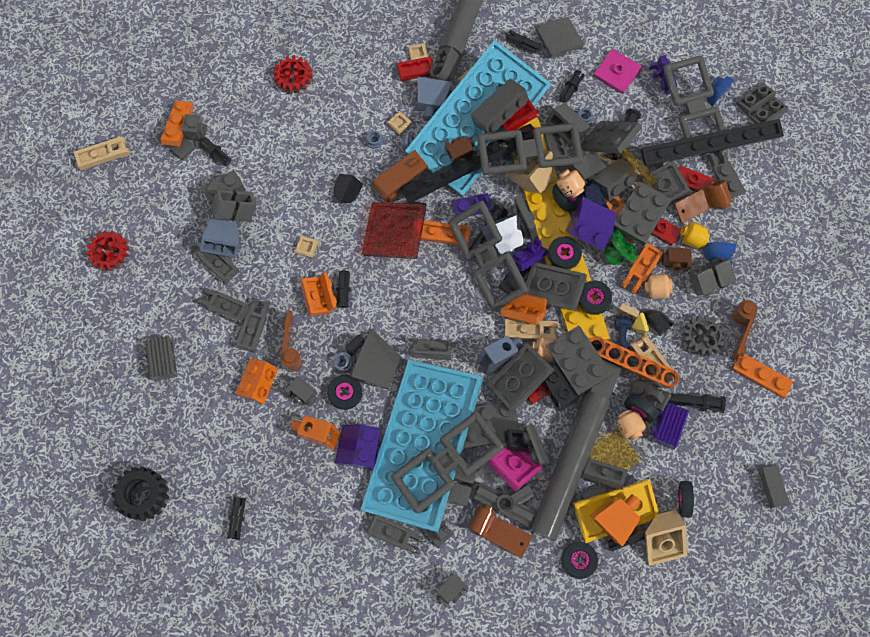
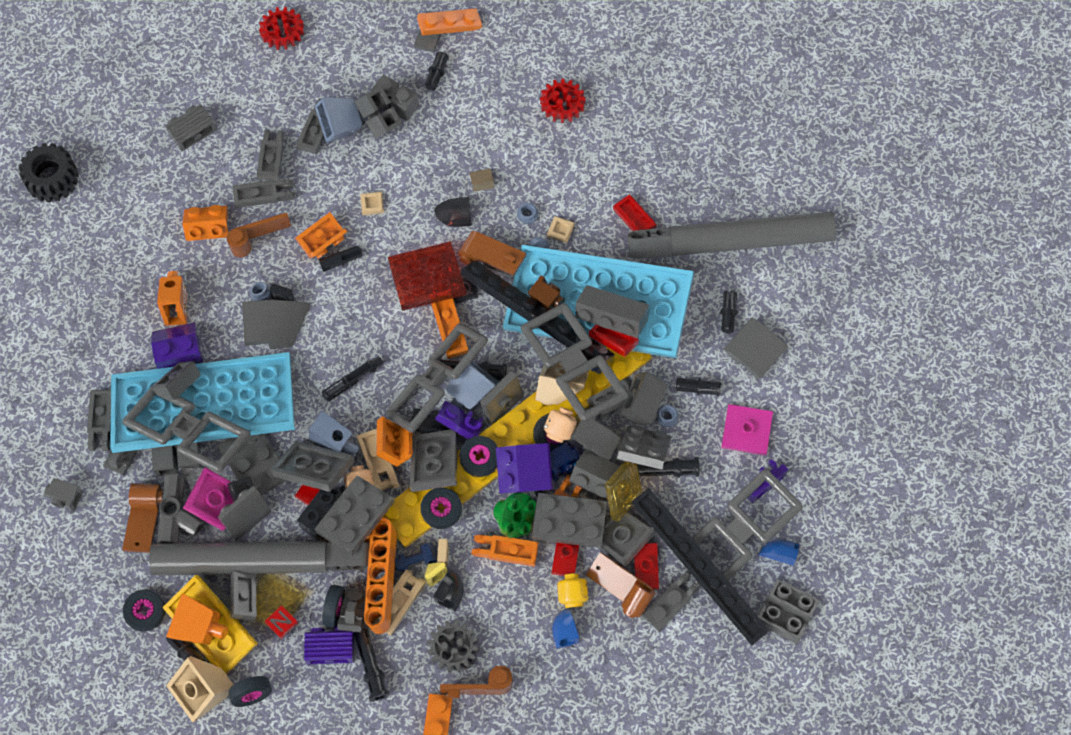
camera: 70 degrees right, 5 degrees down
(193, 128) = (451, 39): dark grey brick -> none
(236, 518) = (59, 267): black pin -> none
(302, 392) = (211, 267): dark grey brick -> none
(328, 159) = (482, 180): none -> dark tan slope
(344, 402) = (224, 299): black bush -> none
(396, 455) = (177, 380): none -> dark grey slope
(417, 51) = (657, 210): tan tile -> none
(431, 349) = (312, 369): dark grey hinge -> none
(432, 95) = (607, 243): sand blue torso -> none
(452, 322) = (351, 378): none -> black piece
(463, 204) = (498, 343): dark purple plate -> none
(630, 425) = (310, 605): light nougat head -> none
(636, 453) = (281, 622): none -> red tile
(659, 286) = (490, 575): light nougat head -> none
(677, 258) = (533, 582): reddish brown brick -> none
(718, 274) = (518, 620): dark grey piece -> none

